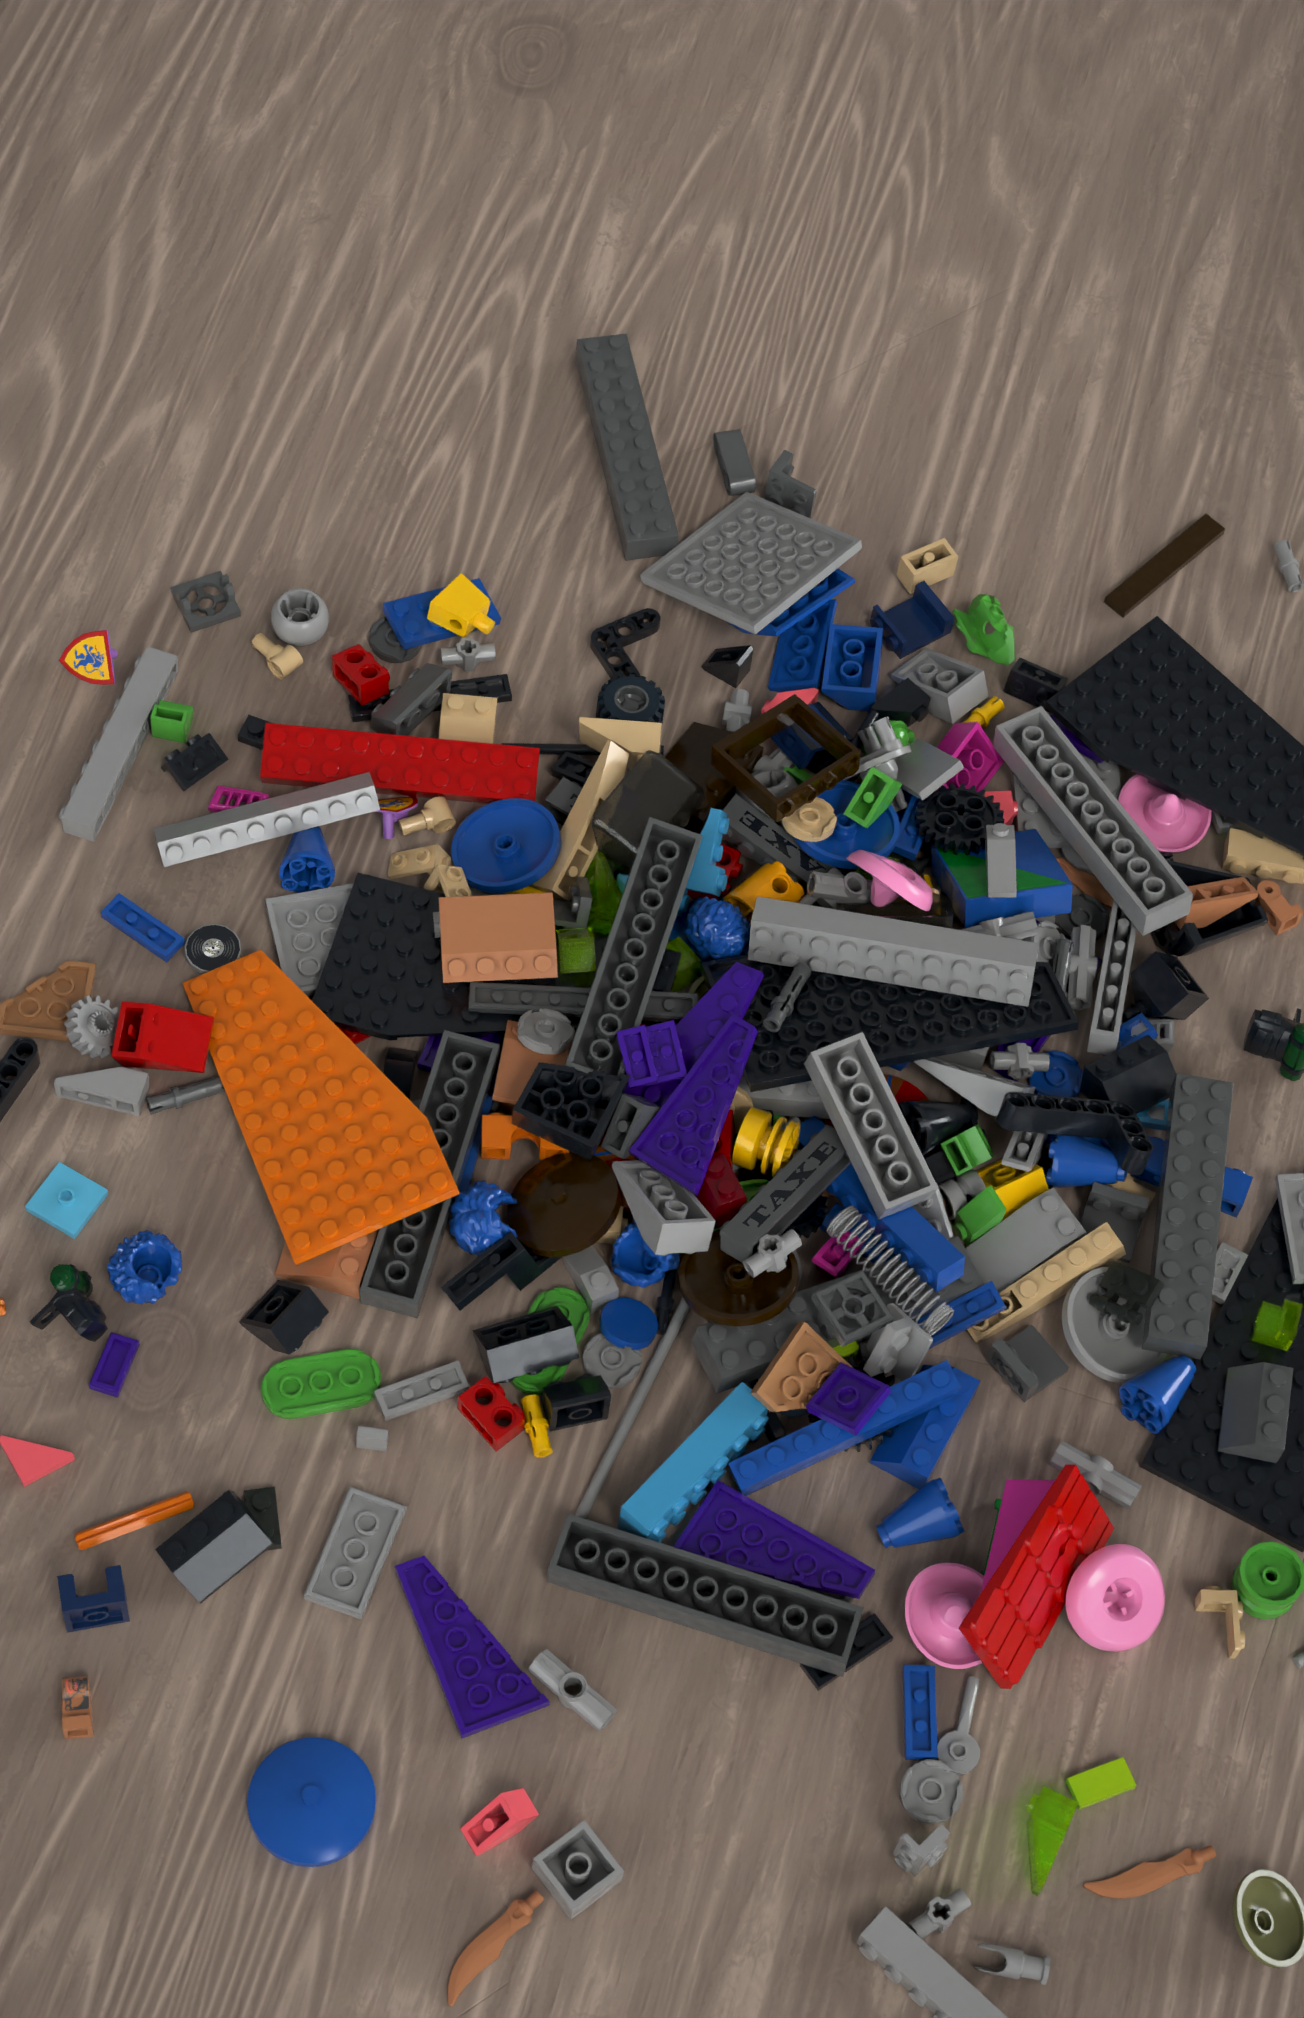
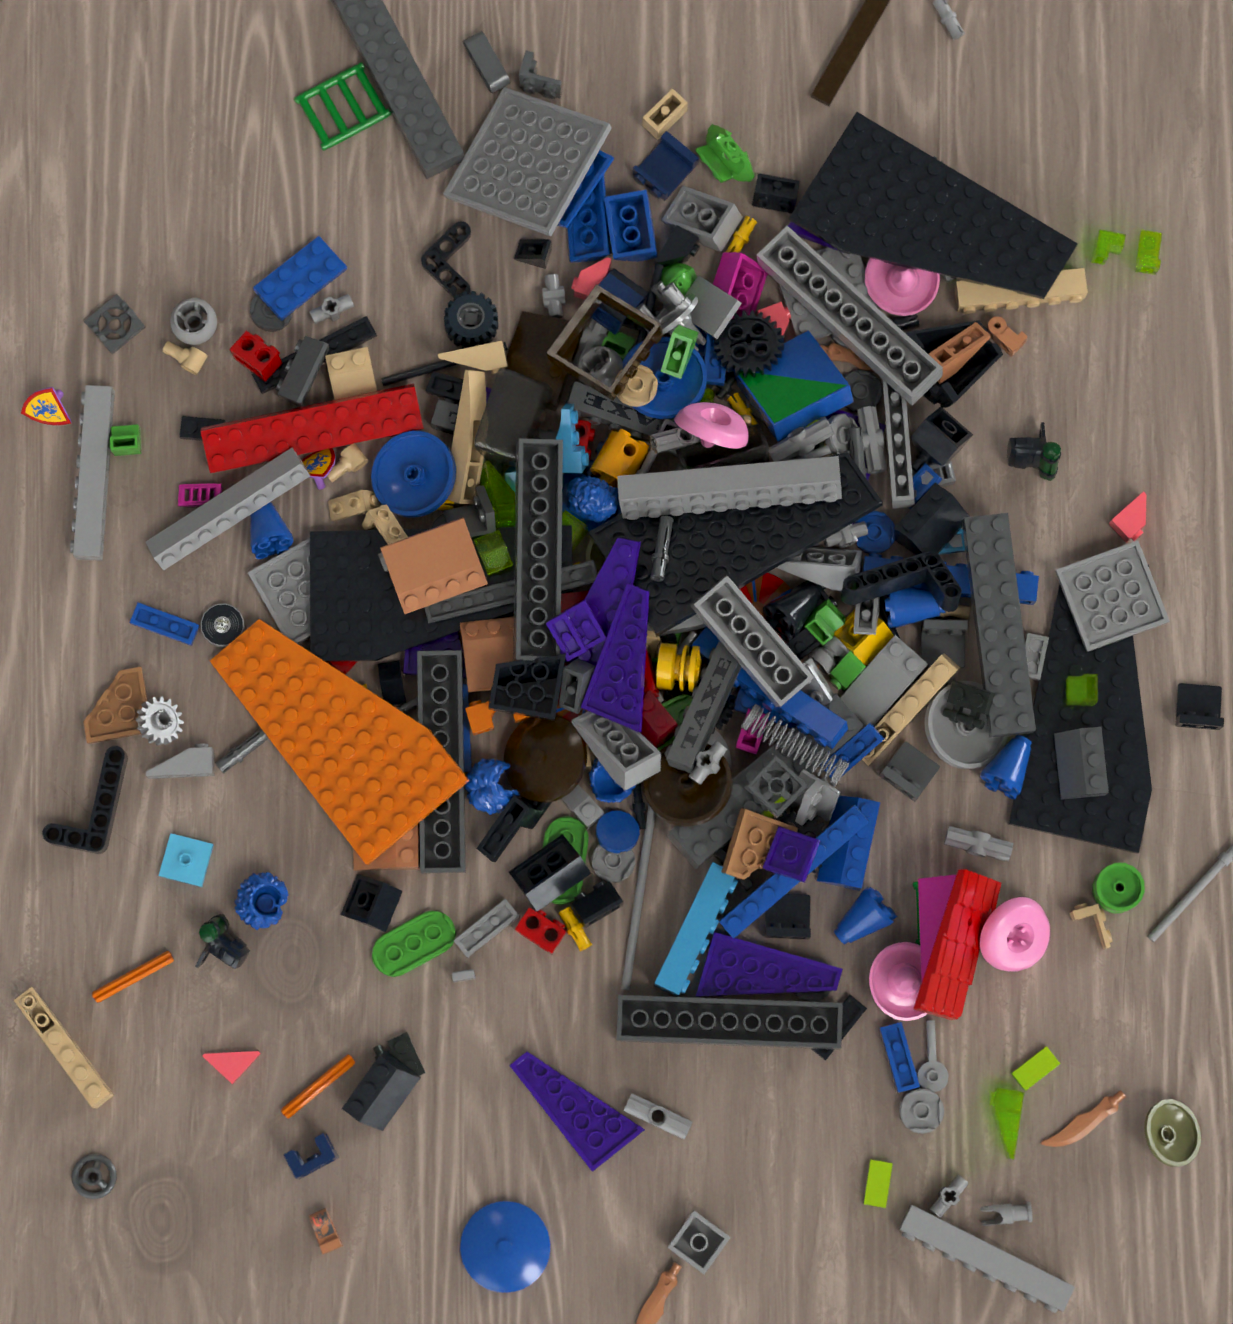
camera: 10 degrees left, 20 degrees up
(114, 1364) = (264, 975): dark purple tile -> none
(161, 1038) = (212, 715): red slope -> none
(195, 761) = (154, 470): black bracket -> none
(355, 1553) = (478, 1061): light grey tile -> none
(461, 608) = (316, 275): yellow torso -> none
(499, 1820) = (636, 1223): coral slope -> none
(545, 1031) = (491, 627): light grey tile -> none
(546, 487) = (339, 79): none -> green bar
(820, 1494) = (789, 918): none -> black bracket
(845, 1871) = (877, 1183): none -> lime tile
(915, 1857) = (932, 1157): light grey bracket -> none
(1000, 861) = (791, 382): light grey slope -> none

